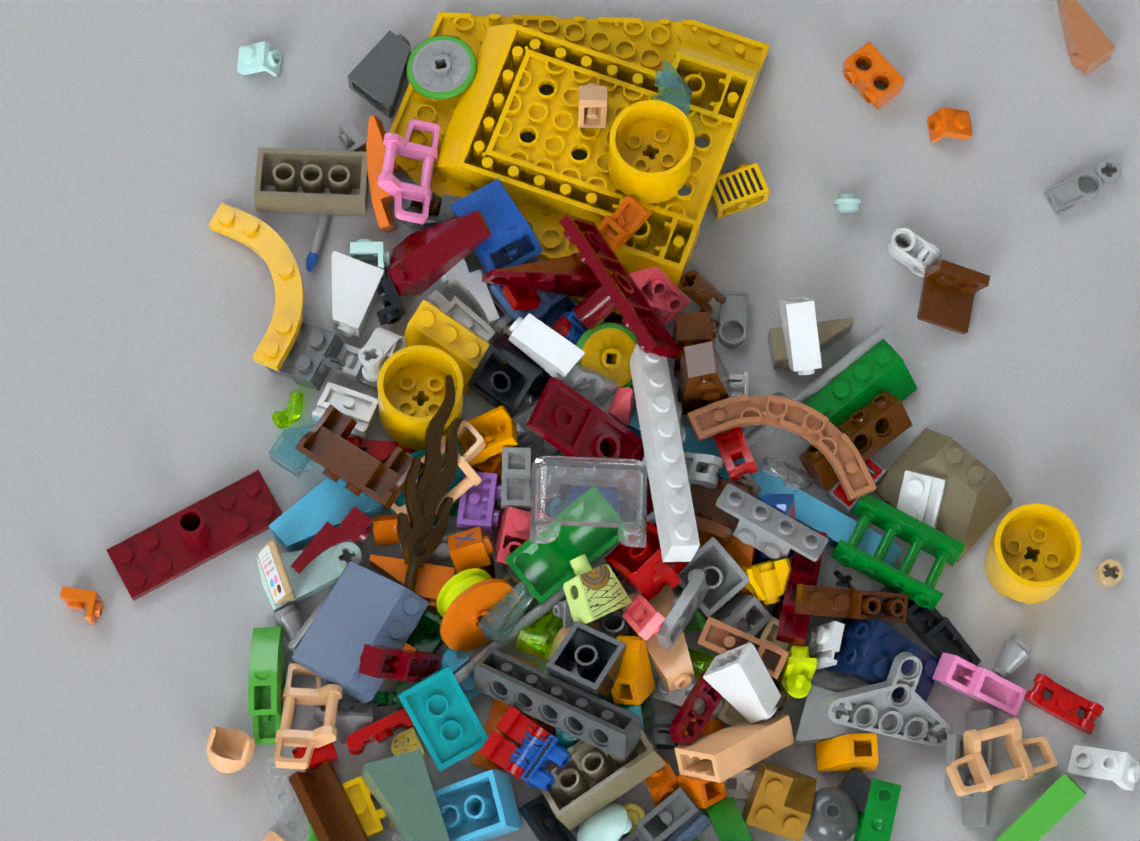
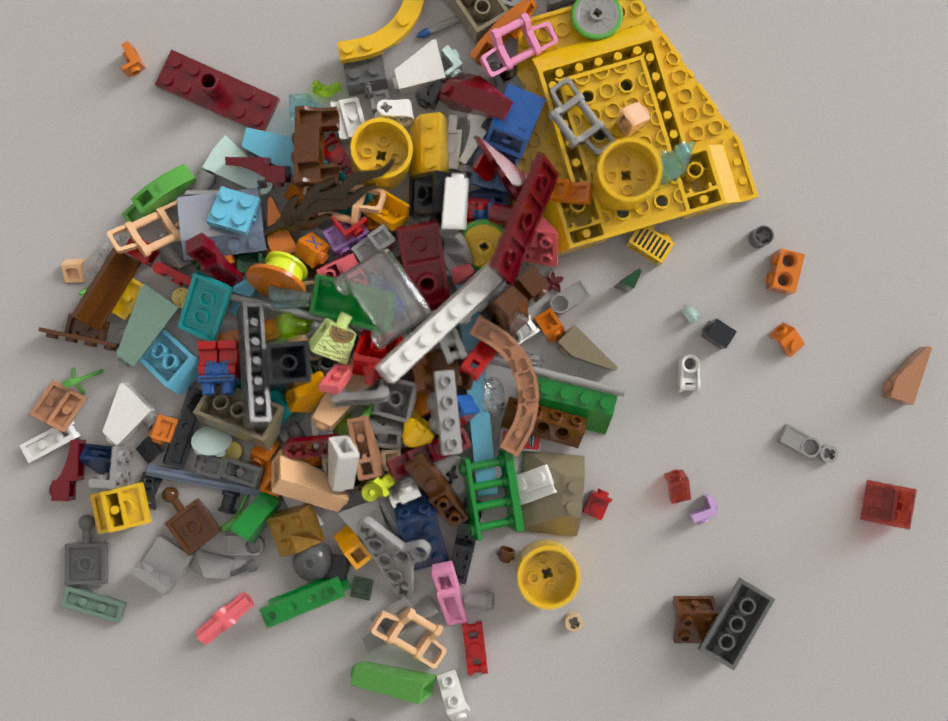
camera: 55 degrees right, 15 degrees up
(229, 749) = (107, 202): light nougat hair -> none
(275, 573) = (224, 150): slope -> none
(360, 601) = (234, 211): none -> medium azure plate
(481, 497) = (354, 231): none -> red bracket
(548, 146) = (556, 114): none -> light grey bar
(700, 290) = (567, 268): reddish brown hinge -> none
(749, 357) = (550, 325): none -> orange bracket
(764, 239) = (629, 282): none -> dark green slope
(800, 334) = (582, 345): white slope -> none
(815, 67) = (764, 234): none -> dark grey wheel
(891, 190) = (718, 333): none -> black brick
(908, 780) = (362, 588): none -> clear green tile
(949, 295) = (674, 414): reddish brown bracket -> none
(978, 591) = (506, 554): none -> reddish brown plate
(990, 449) = (597, 504): none -> red bracket
(1033, 350) = (678, 486): none -> clear red bracket
(1084, 348) = (701, 515): none -> lavender bracket

